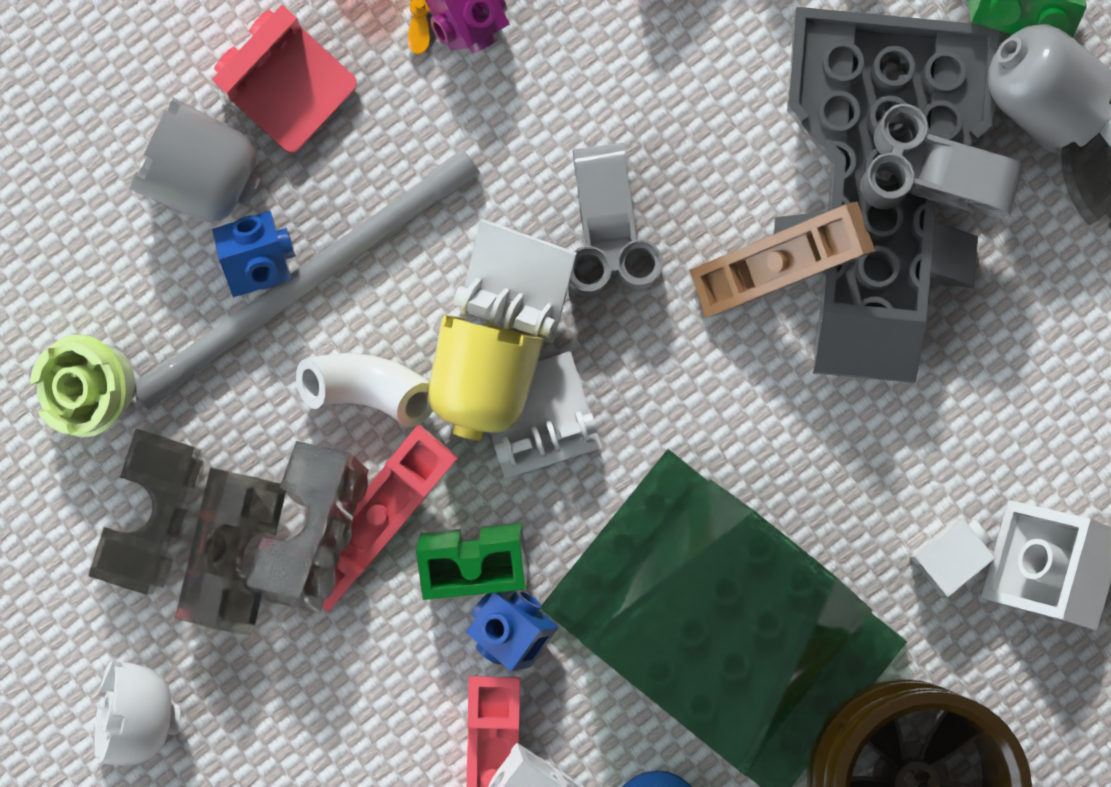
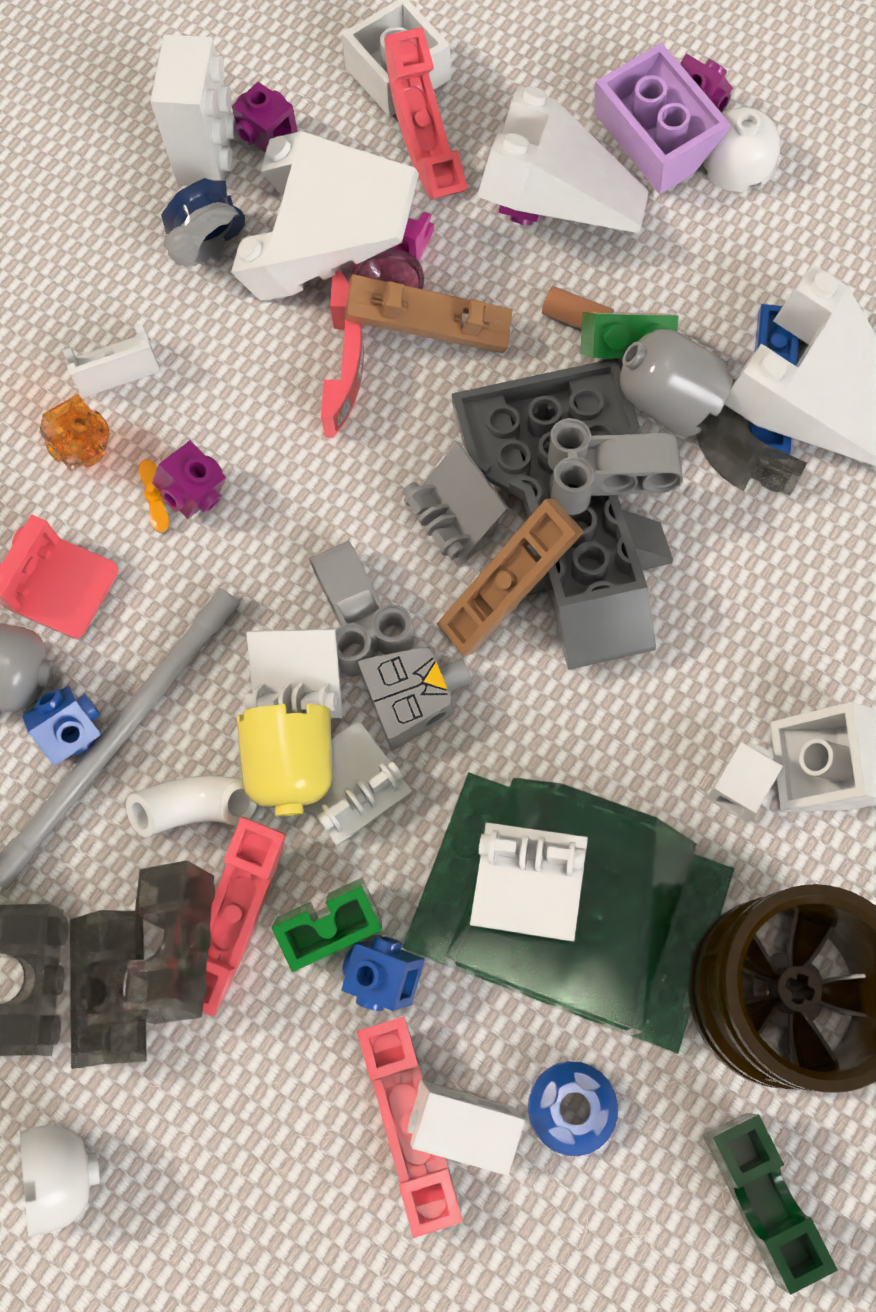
camera: 10 degrees left, 15 degrees down
(636, 340) = (411, 691): none -> light grey torso
(686, 600) = (529, 881): none -> white hinge
(755, 144) = (456, 504): none -> light grey hinge

